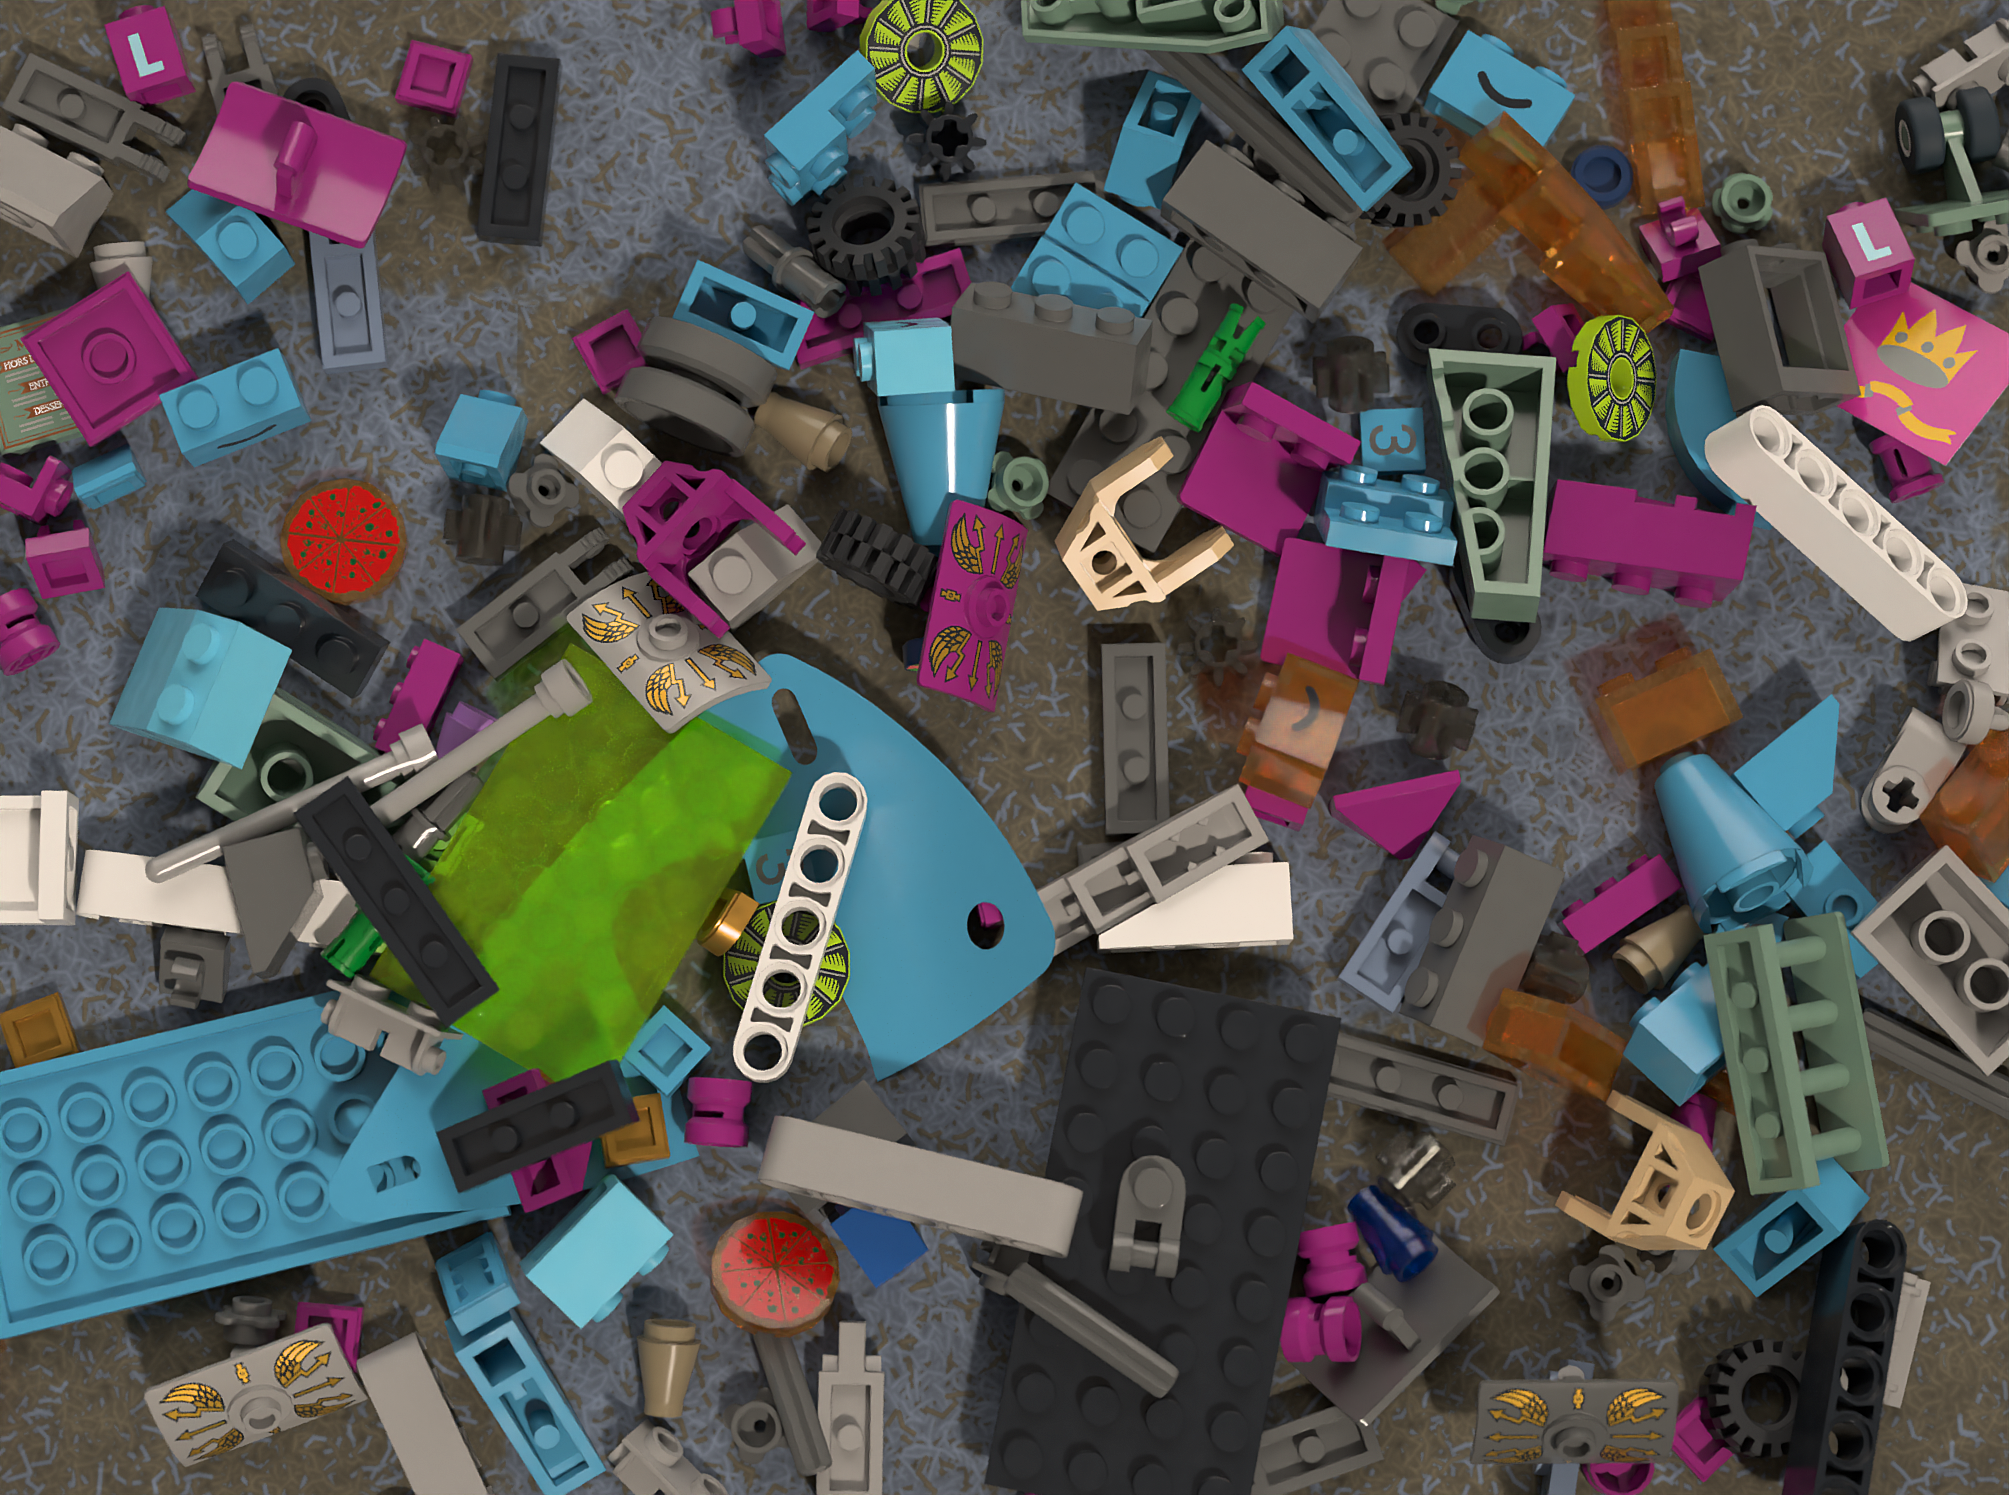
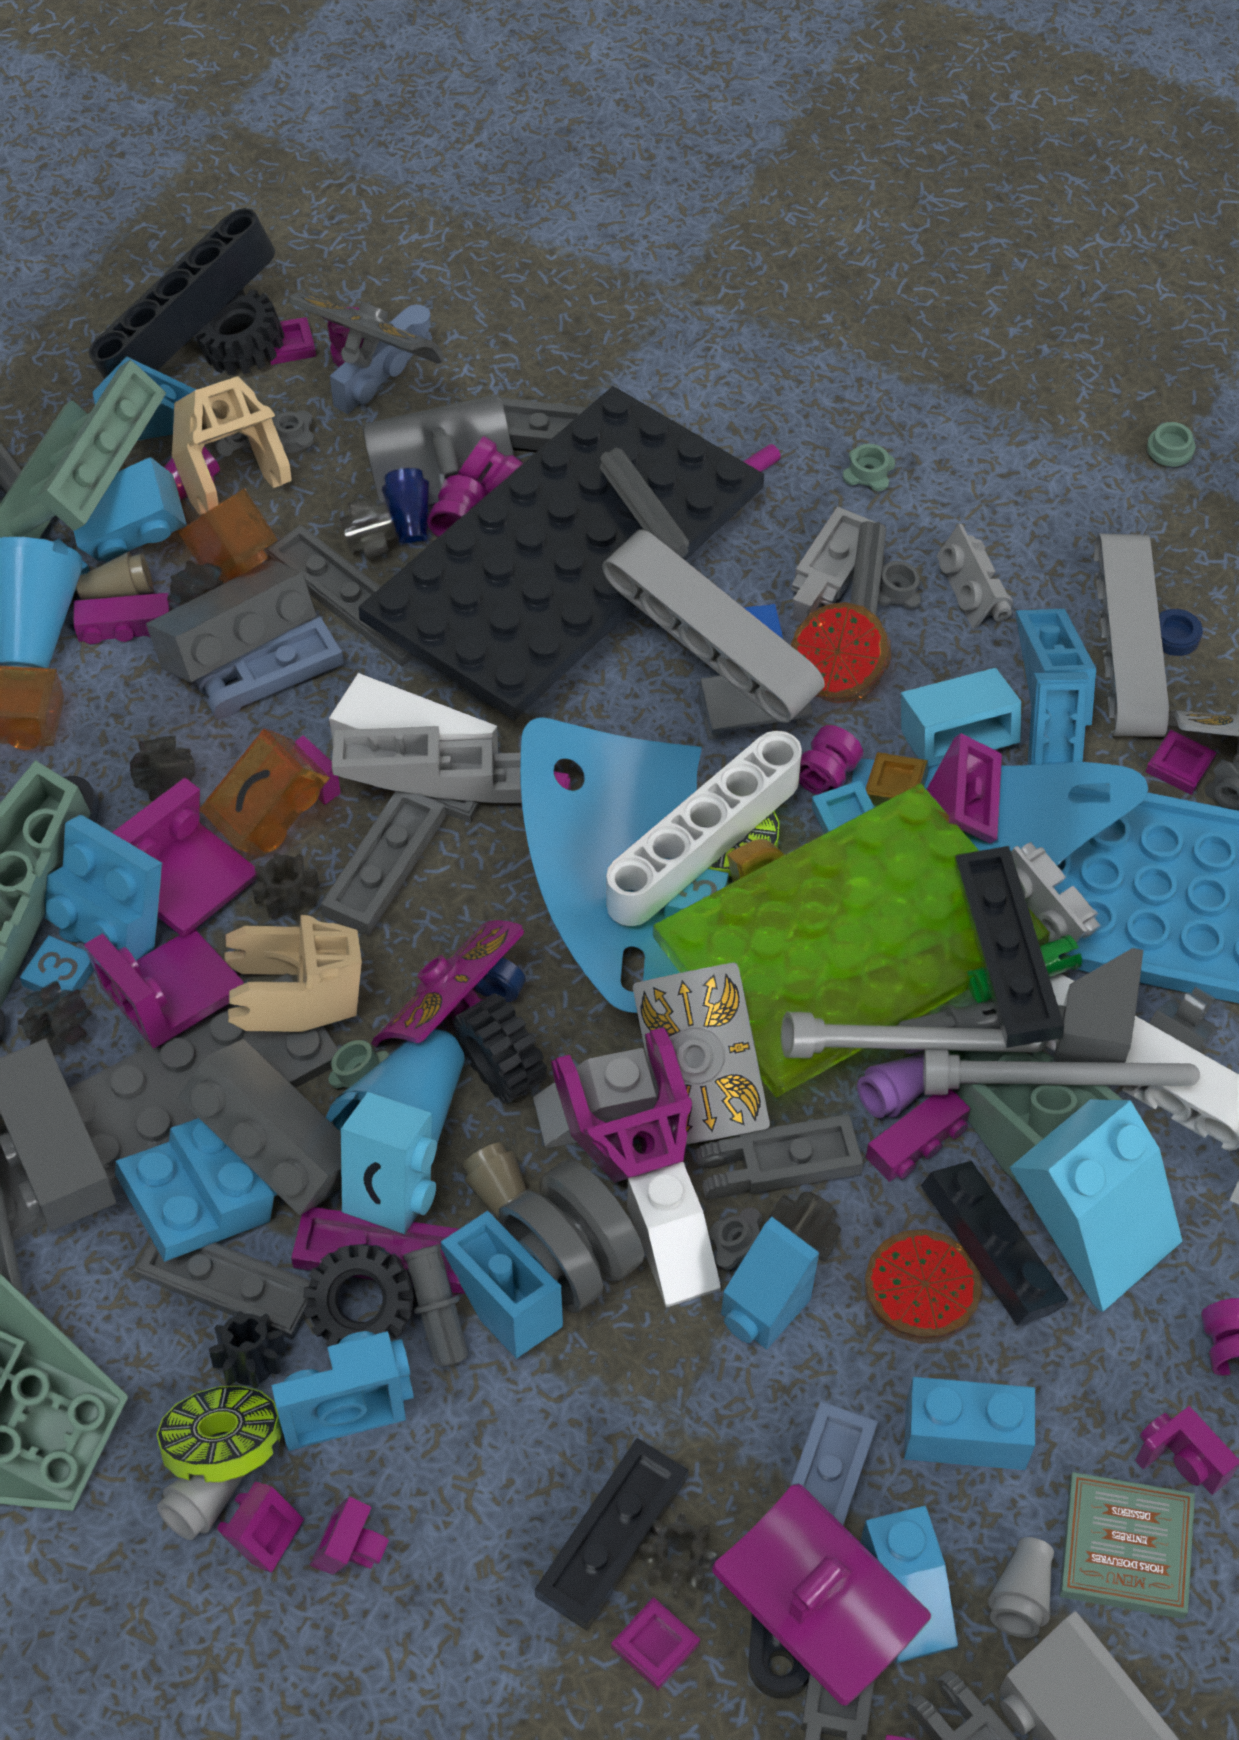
camera: 150 degrees left, 25 degrees down
(64, 561) = (1171, 1374): magenta tile -> none
(108, 477) = (1106, 1430): dark azure slope -> none
(109, 358) = (1064, 1515): magenta tile -> none
(538, 1126) = (968, 769): black plate -> none
(611, 350) = (620, 1328): magenta tile -> none
(666, 1364) = (941, 644): dark tan cone -> none
(1151, 1192) = (557, 558): dark grey plate -> none
(1153, 141) = (81, 1261): dark azure slope -> none
(1223, 357) = (153, 1056): green pin -> none
(1396, 813) = (215, 733): magenta slope -> none

